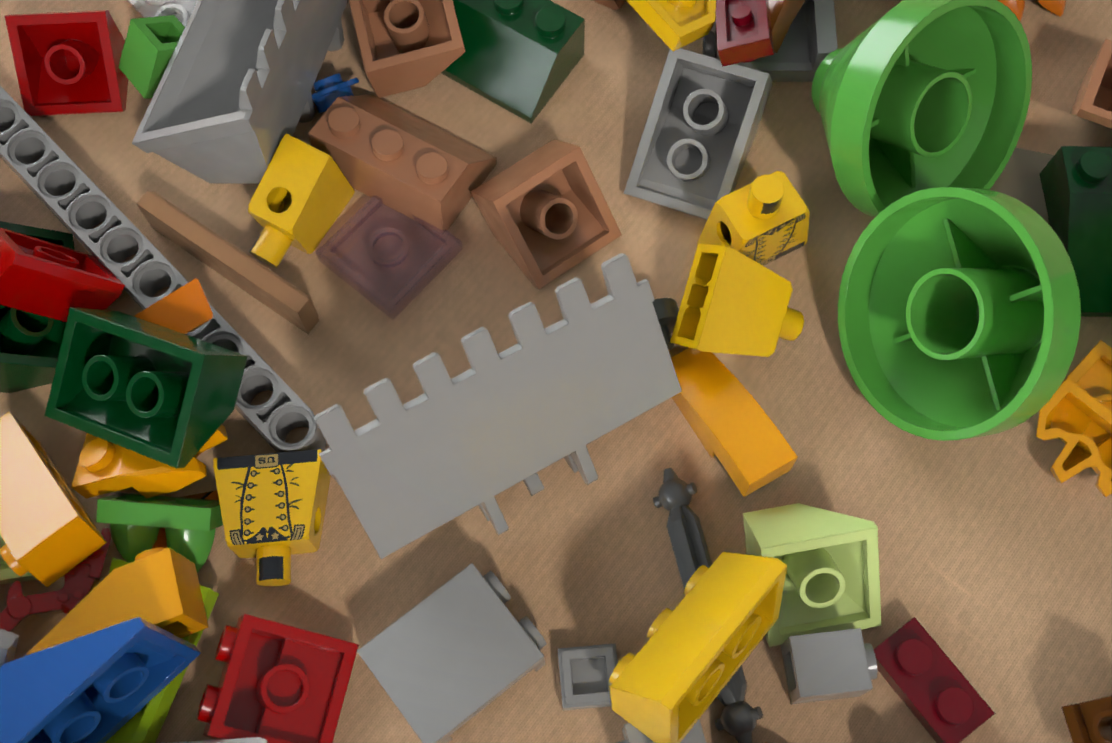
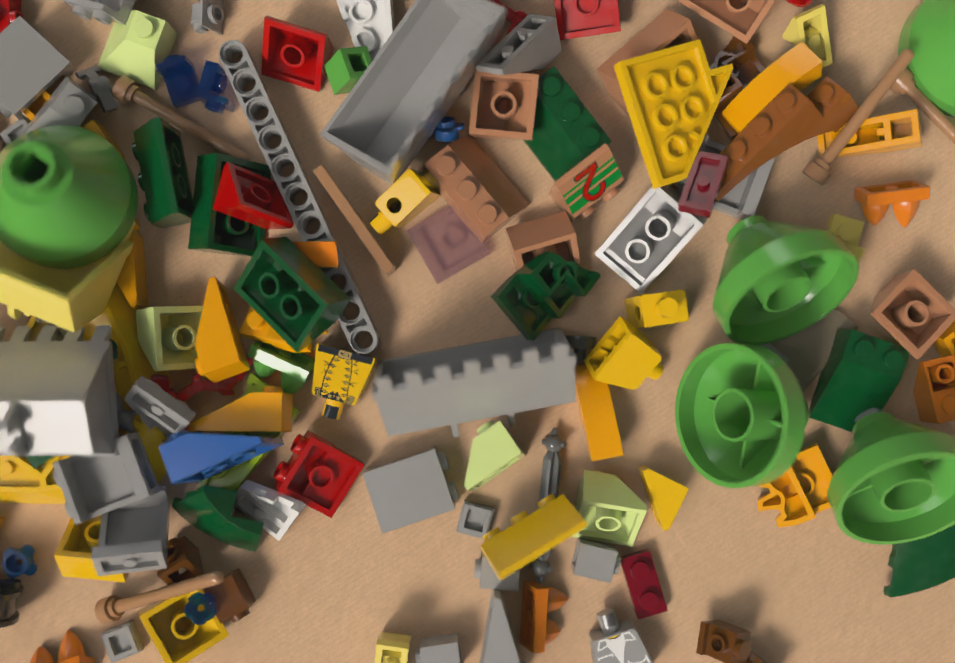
camera: 15 degrees right, 20 degrees up
(556, 243) = (542, 292): none -> dark green slope
(571, 86) = (587, 184): none -> slope
(578, 538) = (490, 454): none -> yellowish green slope
(897, 506) = (663, 494): none -> yellow slope

